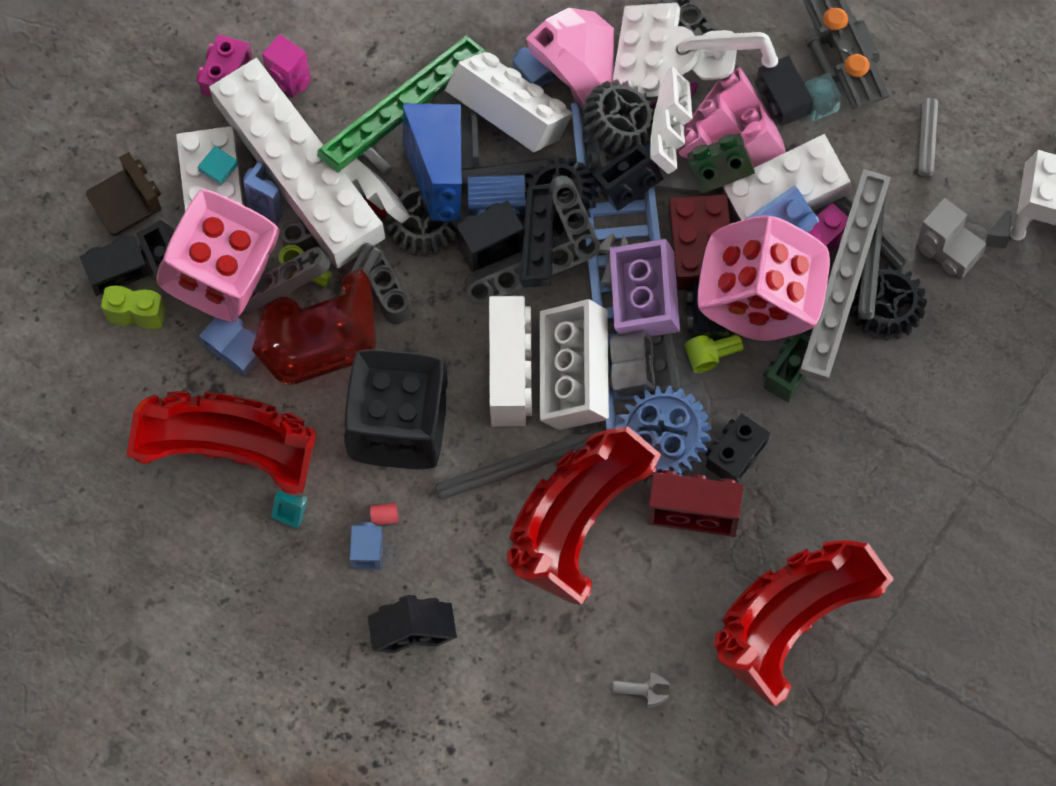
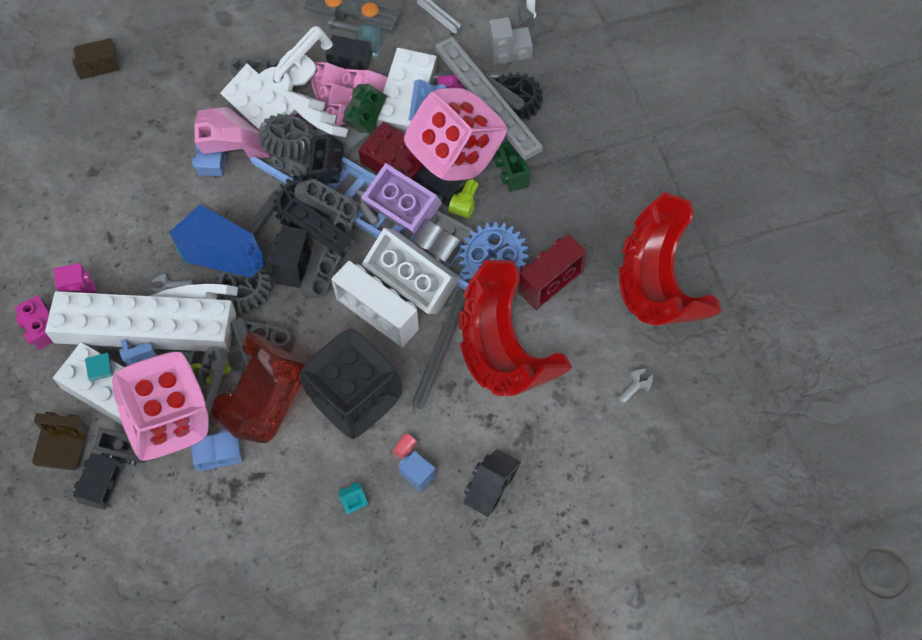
camera: 50 degrees left, 5 degrees down
(139, 307) = (133, 493): lime brick -> none
(225, 428) = (275, 489): red windscreen -> none
(389, 112) = (163, 247): green tile -> none
(496, 189) = (266, 233): medium blue brick -> none
(509, 101) = (218, 185): white brick -> none
(737, 449) = (535, 229): black brick -> none

